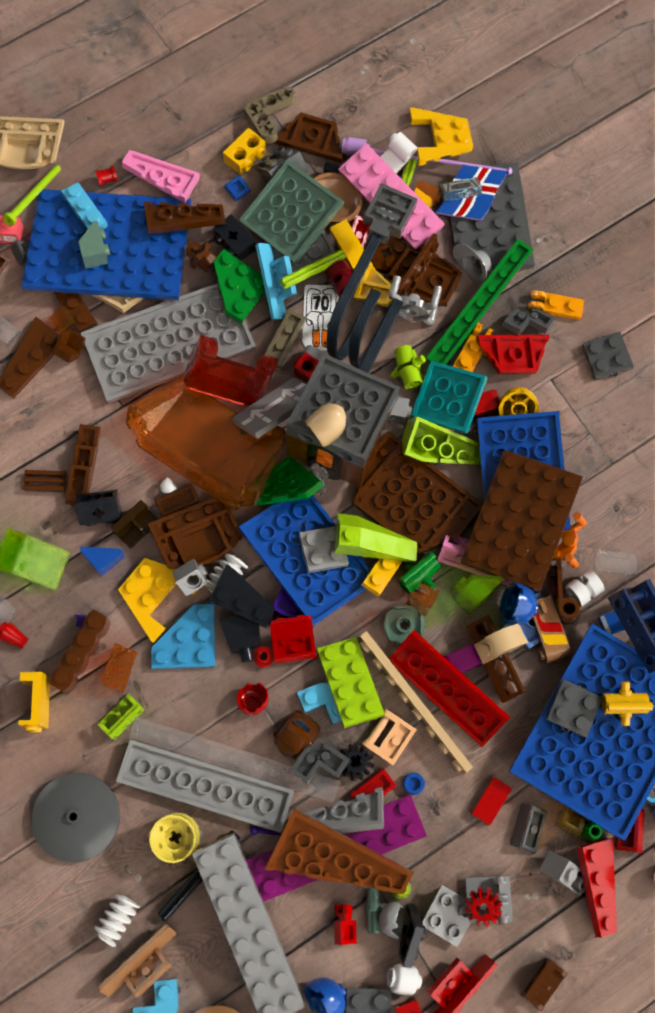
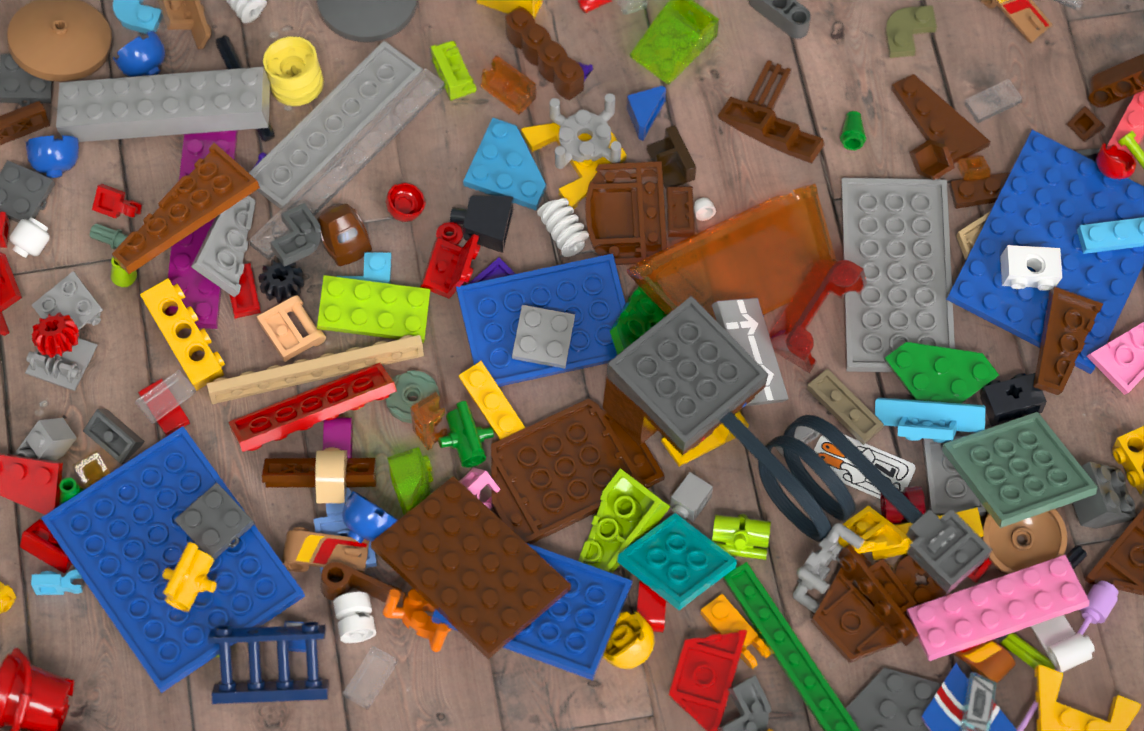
camera: 115 degrees right, 10 degrees down
(30, 222) = (1115, 162): none -> red hair
(62, 408) = (853, 131): none -> green cone
(88, 505) = (707, 123): black brick -> none
(92, 247) = (1053, 218): sand green slope -> none
(137, 248) = (1043, 260): none -> white brick
(139, 578) = (587, 123): none -> light grey plate
(187, 583) = (575, 181): light grey brick -> none
(201, 257) = (998, 346): reddish brown hips -> none
(208, 972) = (141, 56): none -> blue cylinder
(237, 188) = (1091, 435): blue tile -> none
(241, 598) = (525, 220): black wing -> none
(301, 362) = (793, 405): red brick -> none
(311, 269) = (923, 461): lime axle -> none
(327, 423) = (665, 327): tan piece -> none
(366, 539) = (535, 381): lime wedge -> none
(391, 920) = (93, 249): light grey hair -> none
(411, 937) = (68, 260): black wing -> none
(413, 783) = (226, 335): blue tile -> none
(457, 787) = (157, 301): none -> yellow brick
(475, 270) = (860, 687): light grey piece -> none
(487, 801) = (165, 396): none -> clear tile

